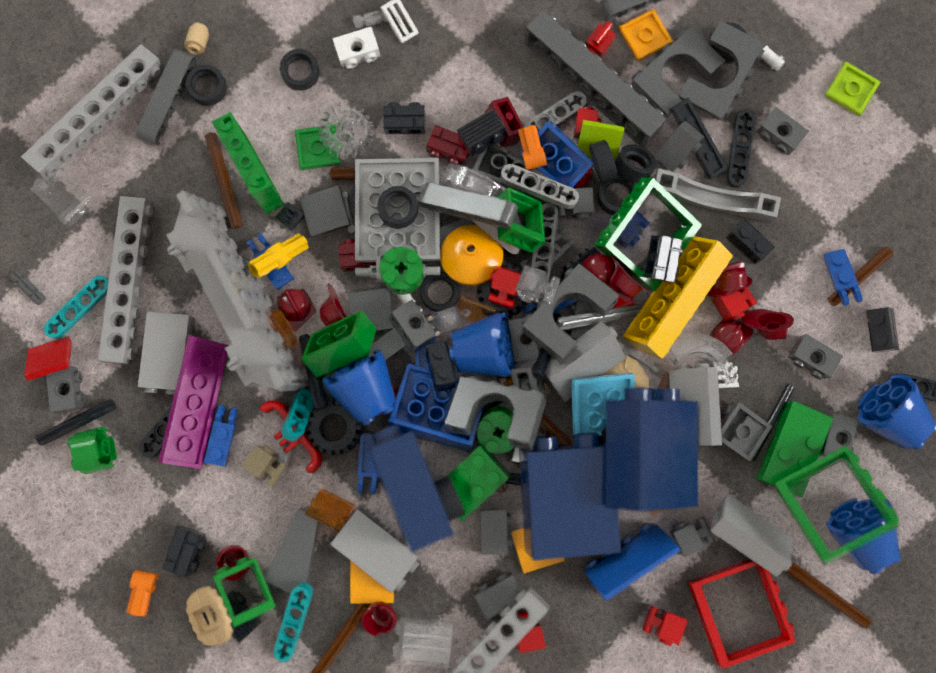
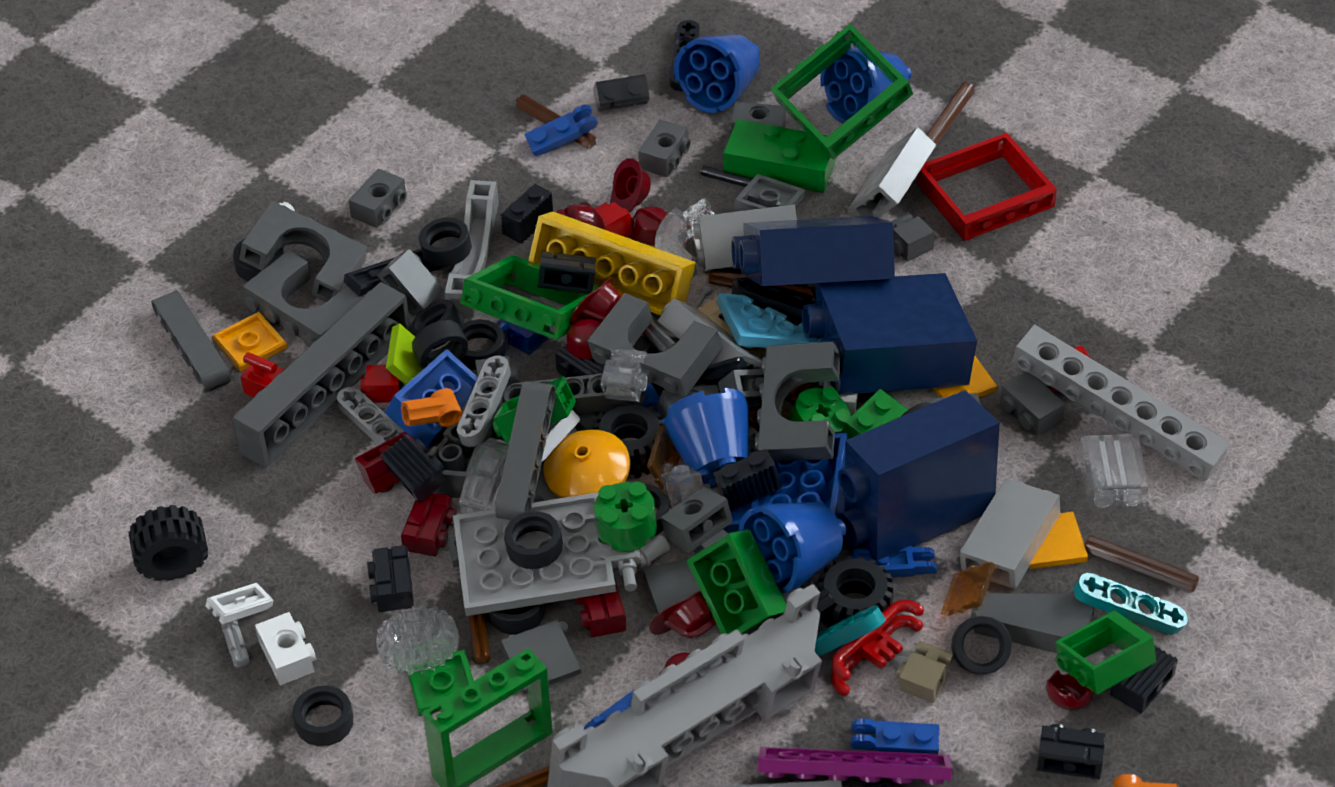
camera: 95 degrees left, 35 degrees down
(217, 631) = (1168, 681): tan piece -> none
(278, 256) = (611, 685): yellow piece -> none
(287, 507) = (1004, 648): none -> black tyre
(290, 216) = (559, 700): black tile -> none
(372, 615) = (1096, 518): dark red hair -> none
(505, 281) = (622, 414): red brick -> none
(637, 557) = (970, 267): blue slope -> none
(669, 626) = (1022, 246): red brick -> none
(729, 164) = (450, 254): none -> black tyre
(743, 149) = (401, 231): black beam -> none
(852, 88) = (314, 145): lime tile -> none

